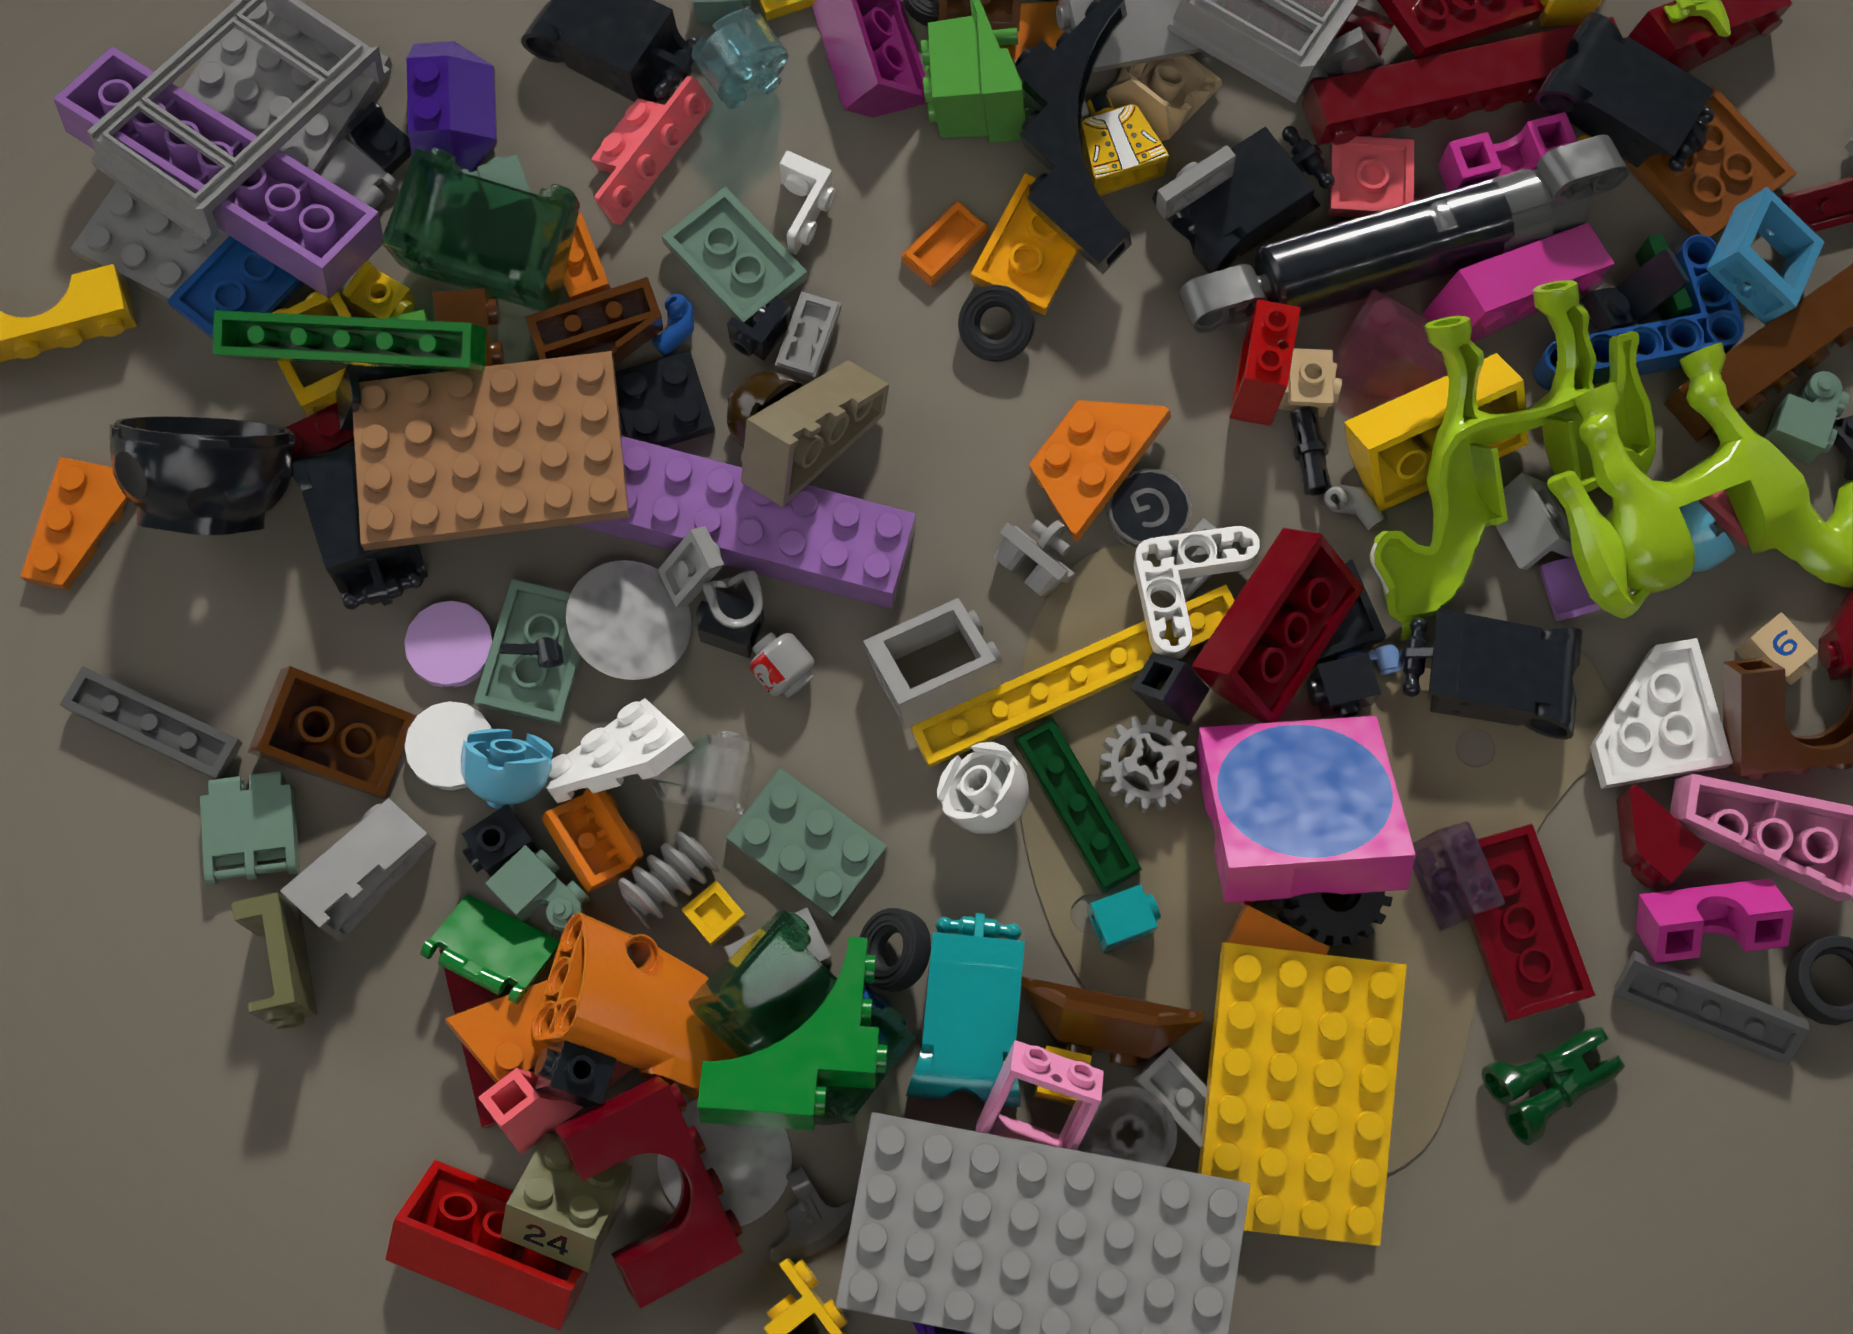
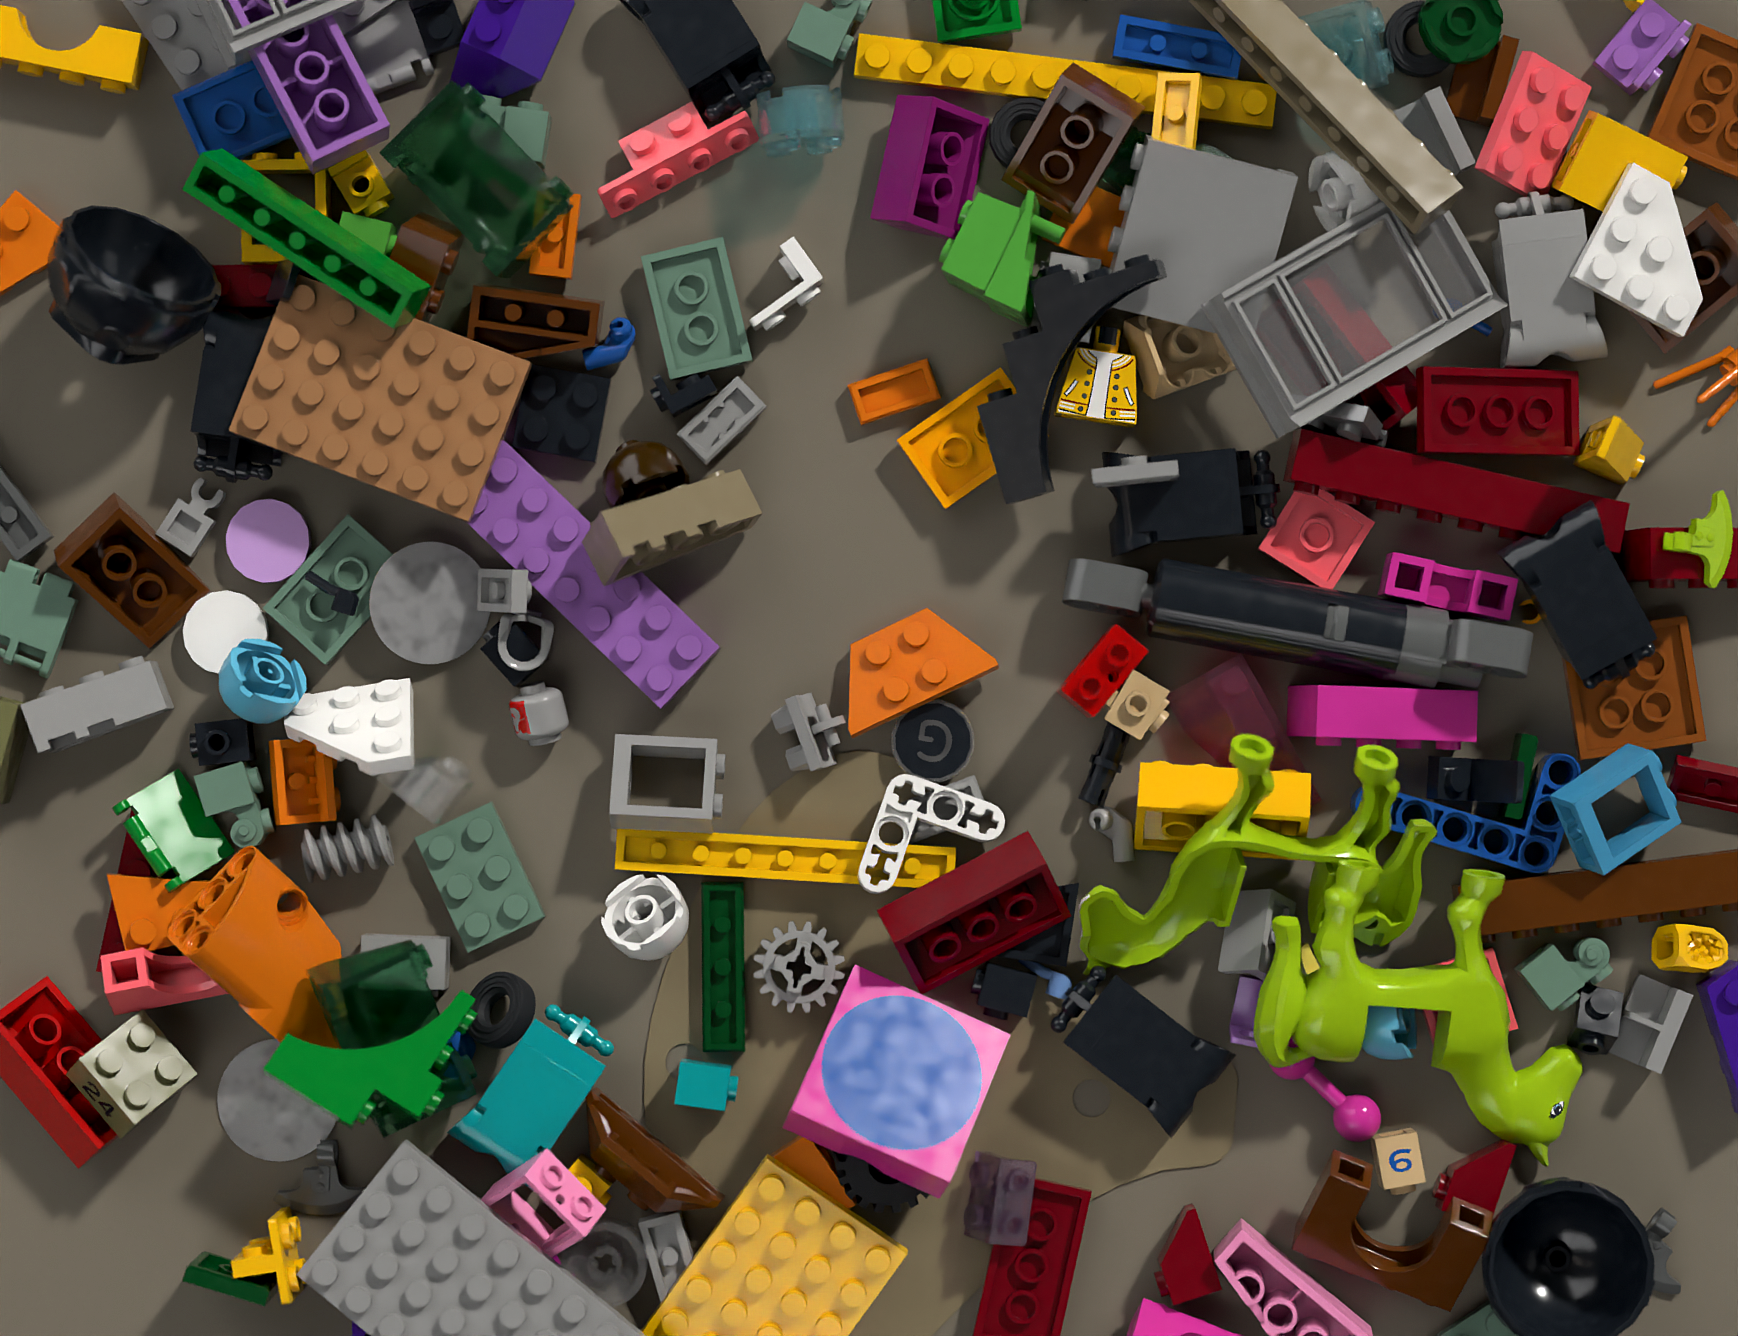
camera: 30 degrees right, 15 degrees up
(366, 664) = (187, 523): none -> light grey plate
(574, 1073) = (183, 982): black brick -> none
(699, 1230) = (221, 1053): dark red arch -> none
(713, 913) = (371, 896): yellow plate -> none
(977, 305) = (868, 498): black tyre -> none
(1170, 688) = (852, 915): black brick -> none
(1662, 721) = (1260, 1165): white plate -> none
(1717, 632) = (1354, 1115): none -> dark pink piece

